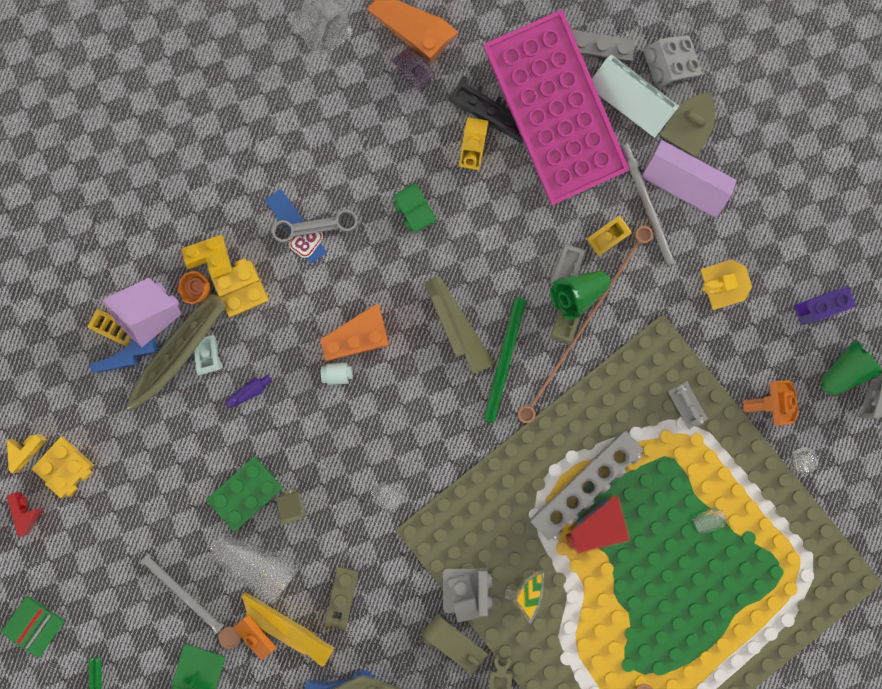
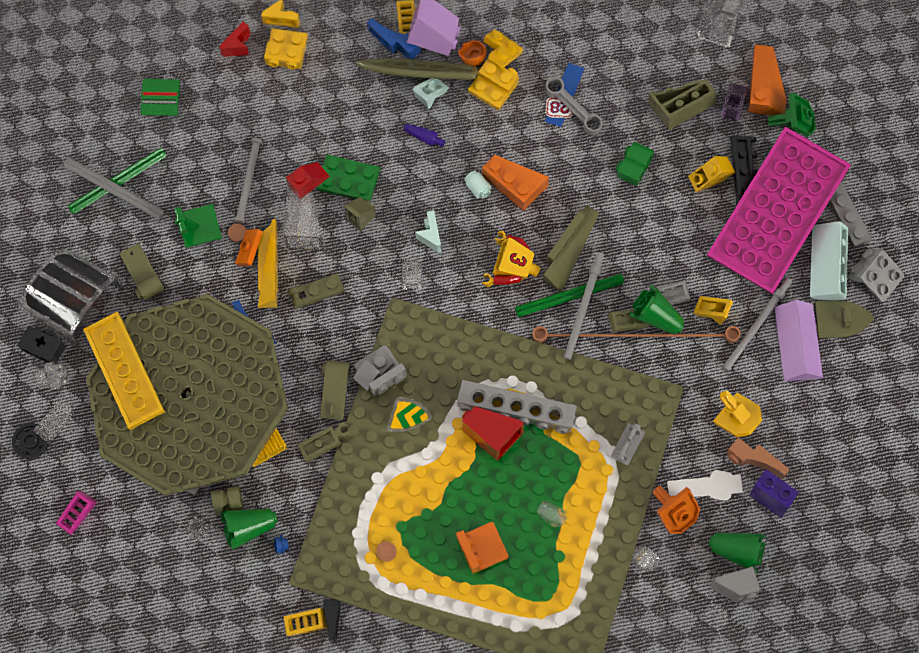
camera: 60 degrees right, 15 degrees down
(229, 545) = (306, 179): none -> red slope
(361, 454) = (430, 236): none -> light aqua slope
(384, 121) = (682, 103): none -> olive wedge
(438, 392) = (513, 262): none -> yellow torso
(473, 20) = (798, 117): none -> green piece
(500, 322) = (594, 272): none -> light grey bar
(699, 606) = (482, 547): none -> orange bracket
(774, 293) = (742, 454): none -> nougat slope
(775, 347) = (717, 486): none -> white sticker

